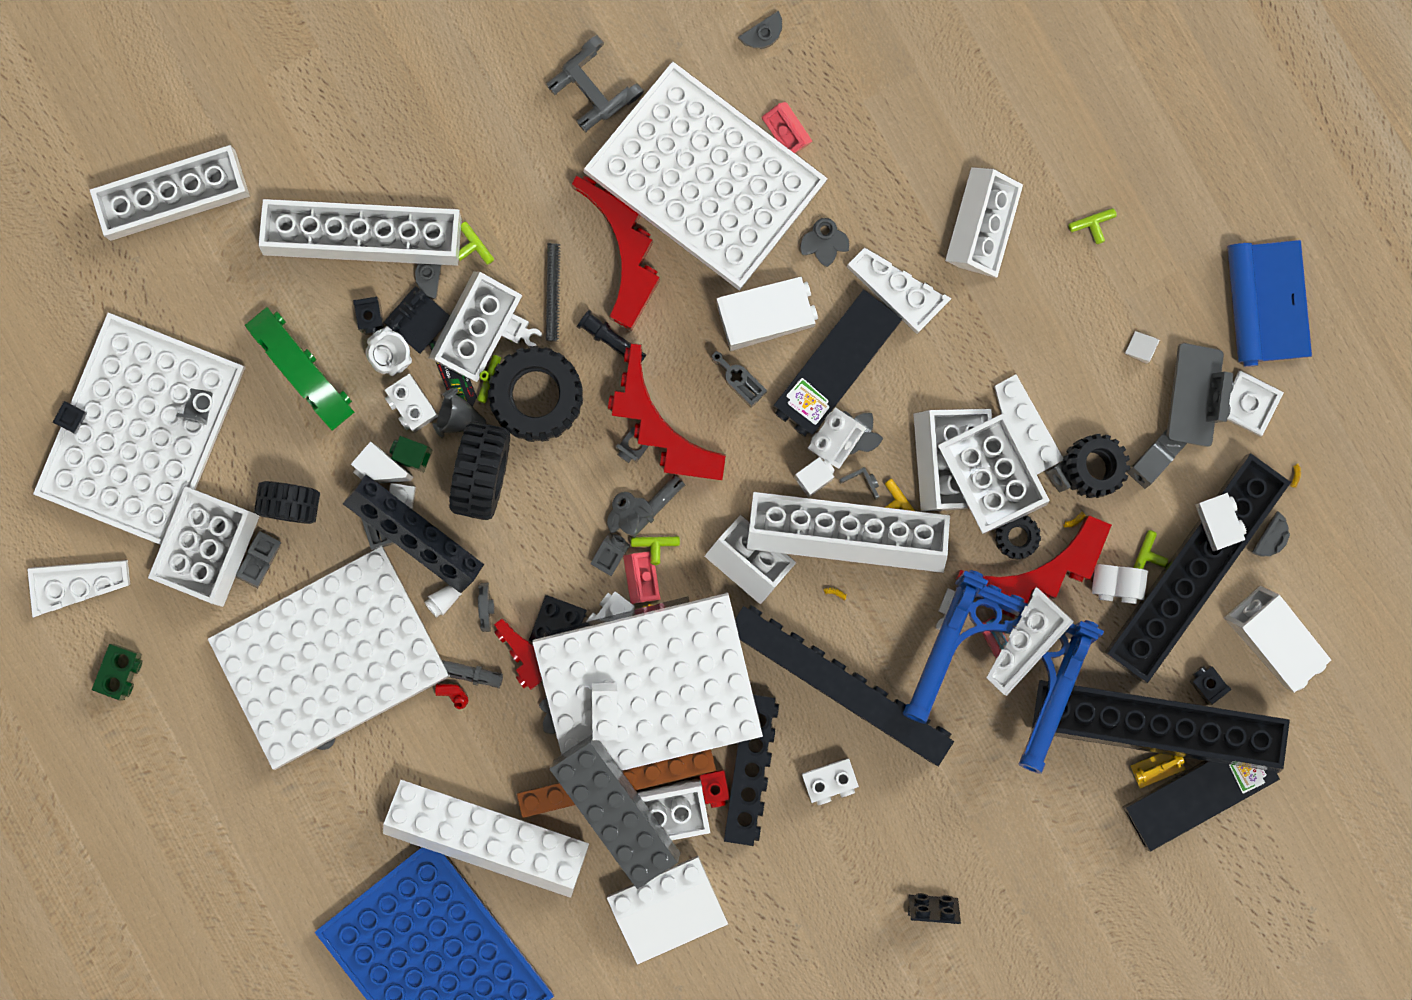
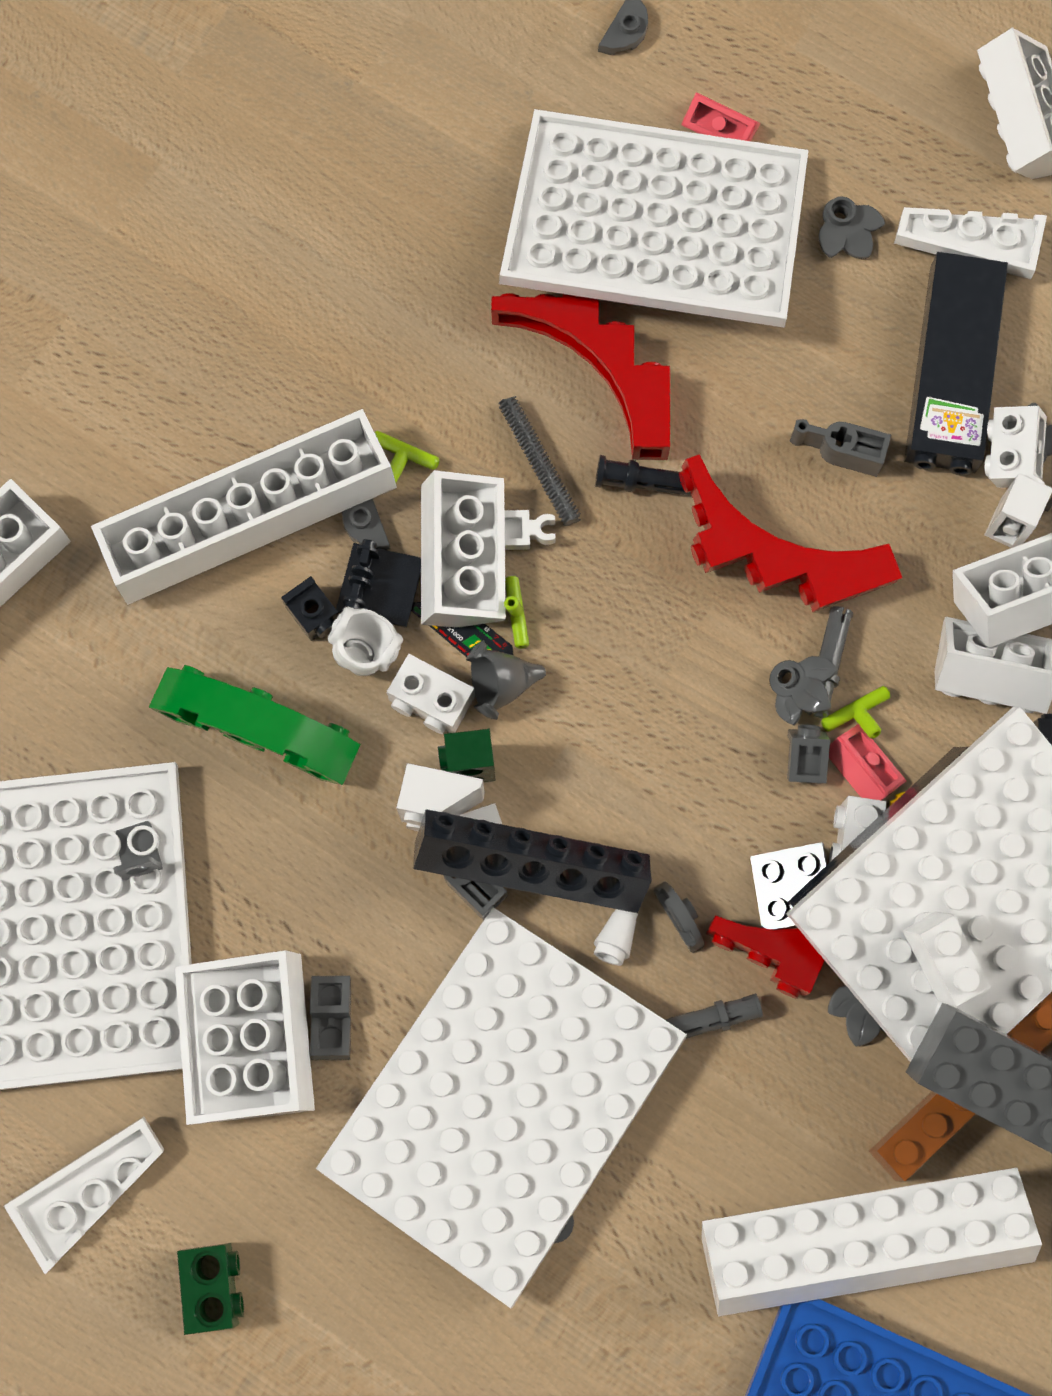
camera: 30 degrees left, 10 degrees down
(287, 502) = (332, 911): black tyre -> none
(454, 692) = (703, 1057): red arm -> none
(479, 470) = (580, 725): black tyre -> none
(527, 361) = (598, 549): black tyre -> none
(601, 106) = (473, 203): dark grey connector -> none
(626, 452) = (753, 610): dark grey bracket -> none
(766, 312) = (827, 346): white slope -> none

